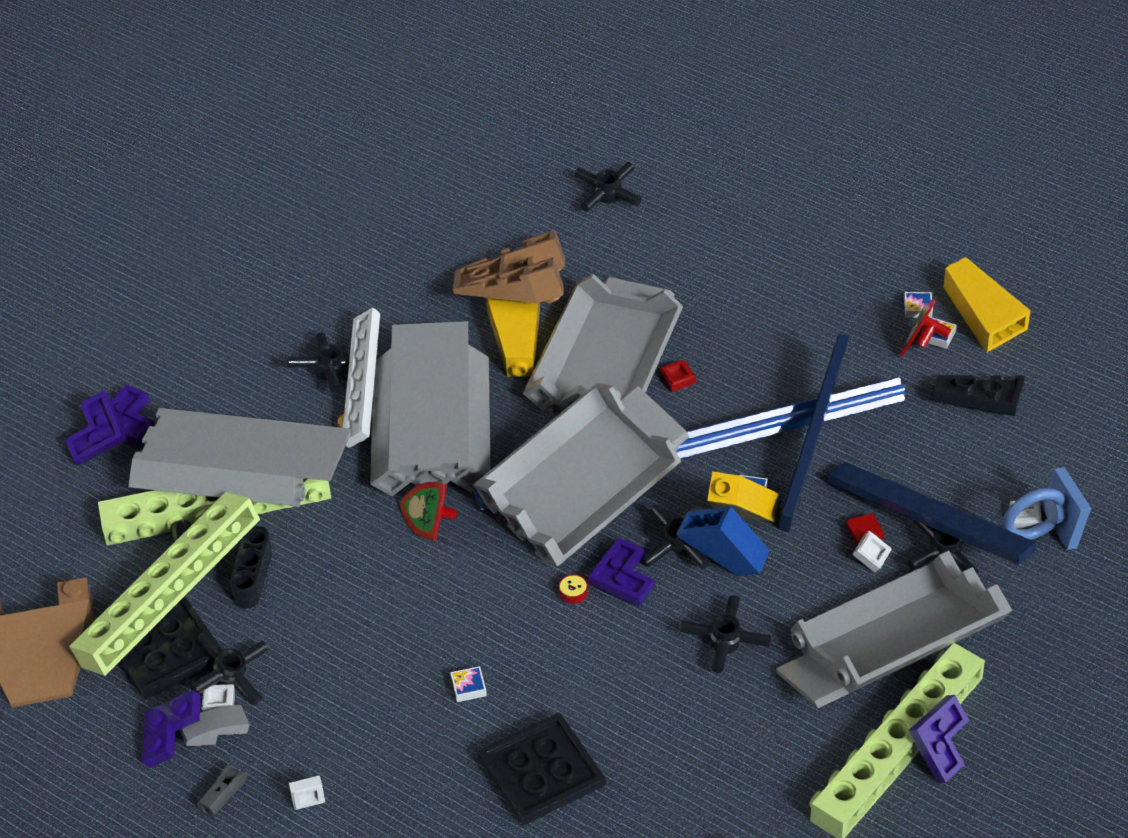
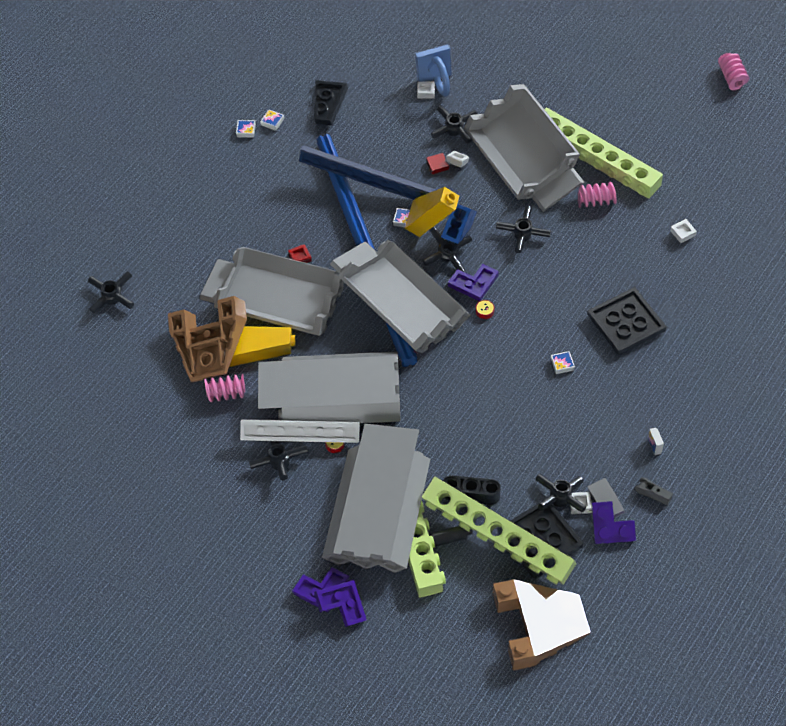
camera: 90 degrees left, 10 degrees up
(424, 507) = (424, 387): shield -> none
(440, 299) = (225, 388): none -> bright pink piece
(799, 733) = (596, 194): none -> bright pink piece
(930, 326) = (273, 123): red shield -> none
(932, 513) = (435, 124): dark blue tile -> none
(934, 736) = (602, 131): dark purple plate -> none
(984, 304) = (252, 94): yellow slope -> none

